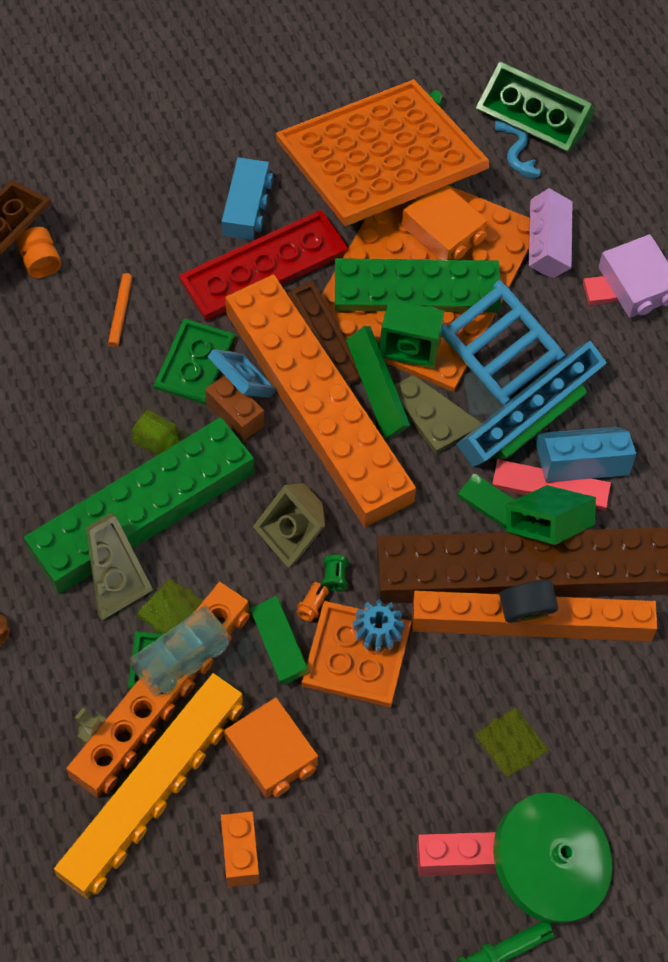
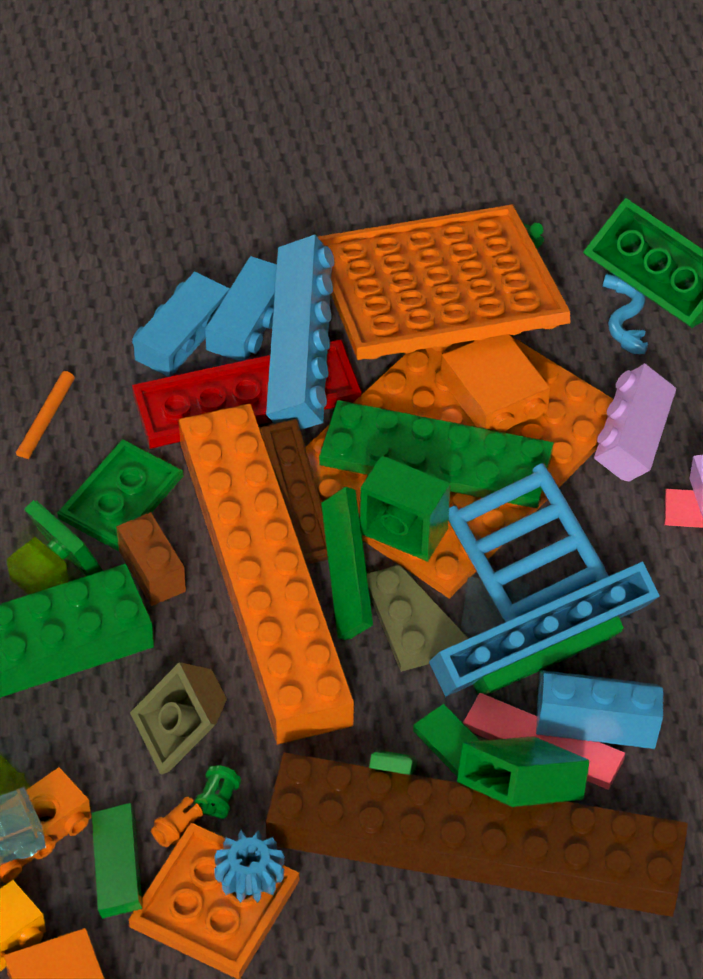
camera: 15 degrees right, 10 degrees down
(169, 408) = (62, 540): none -> green plate
(199, 220) = (178, 324): none -> dark azure brick
(242, 373) = (172, 518): dark azure tile -> none
(295, 212) = (300, 333): none -> dark azure brick
(456, 526) = (393, 762): none -> green tile
(528, 601) = (453, 871): black wheel -> none
(574, 619) = (466, 901): orange brick -> none

